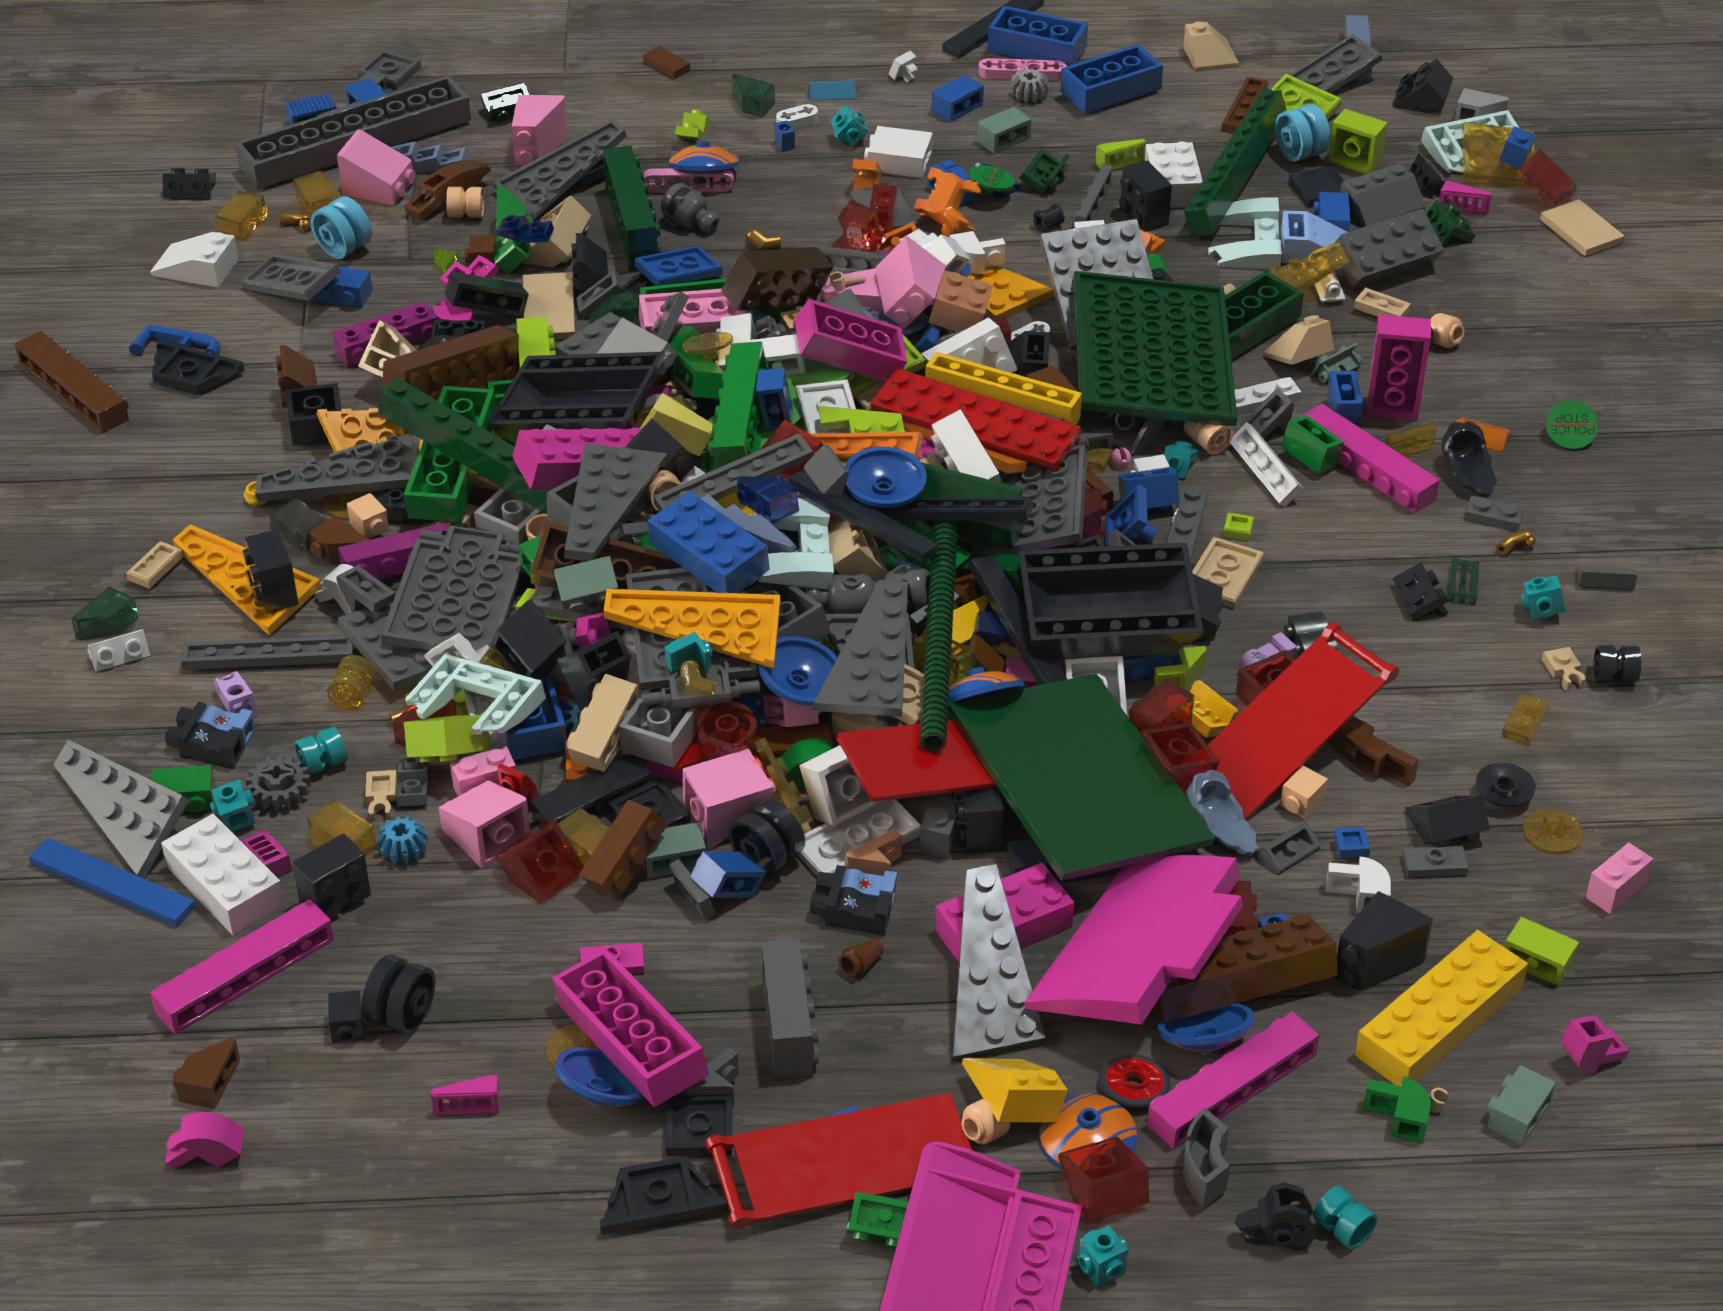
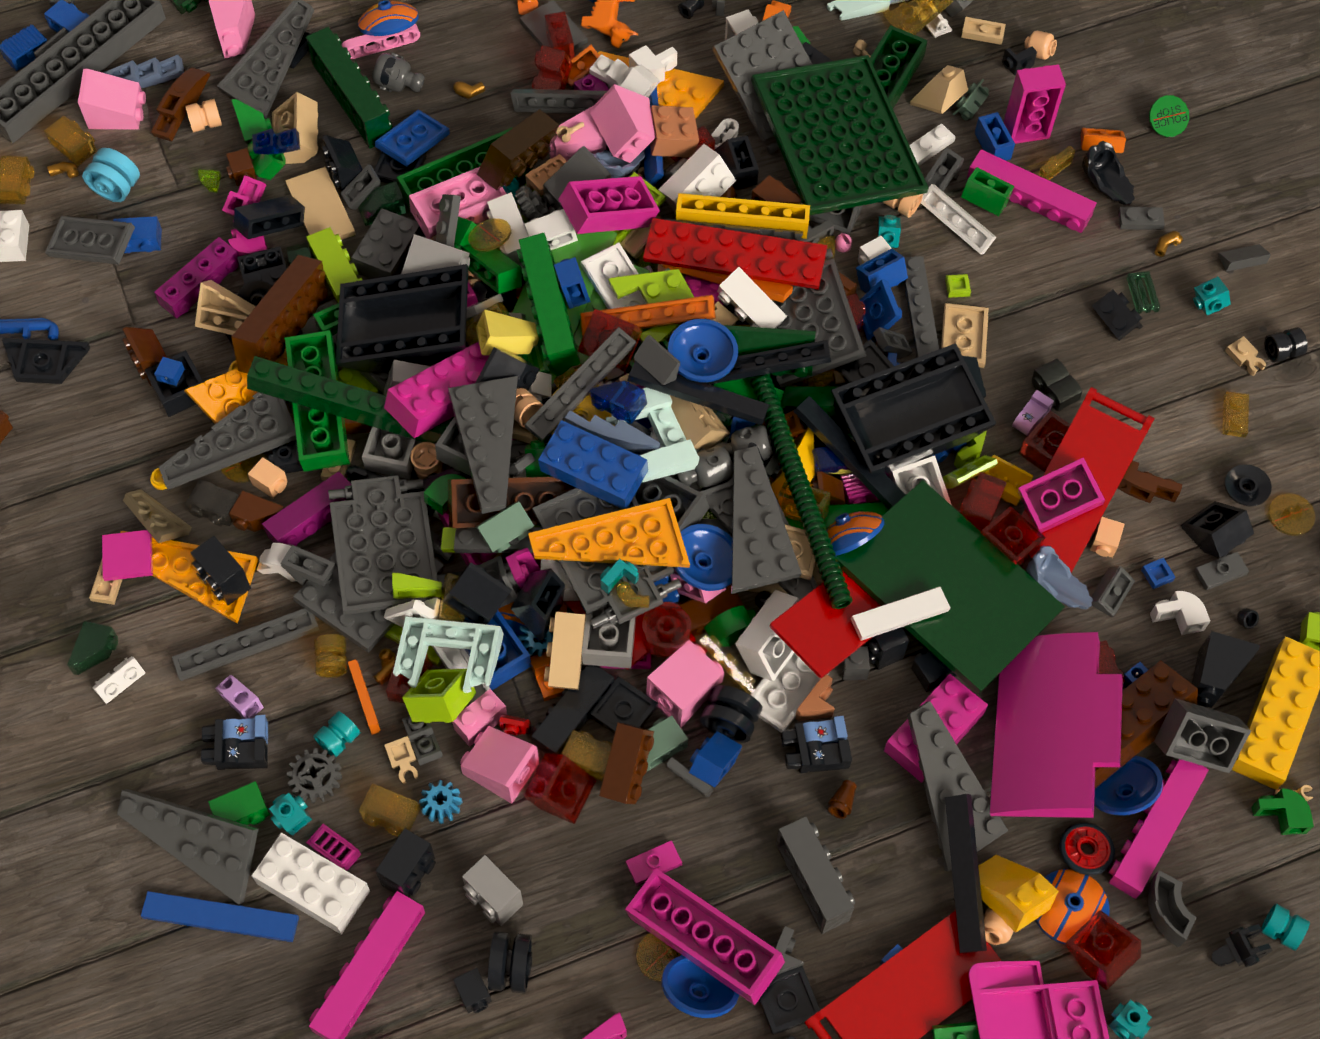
camera: 20 degrees left, 20 degrees up
(184, 544) = (127, 555): none -> dark pink tile
(229, 518) = (155, 517): none -> dark tan wing
(309, 393) = (169, 371): none -> blue piece
(368, 728) = (364, 697): none -> orange tile
(413, 925) = (492, 890): none -> light grey brick
(456, 620) = (414, 587): none -> lime slope
(965, 1050) = (965, 874): none -> black tile
(999, 772) = (900, 613): none -> white tile
(1142, 685) = (969, 471): none -> lime slope
(1254, 723) = (1061, 495): none -> dark pink brick
(1321, 992) = (1202, 736): none -> dark grey brick
(1450, 911) = (1248, 615): none -> black hinge

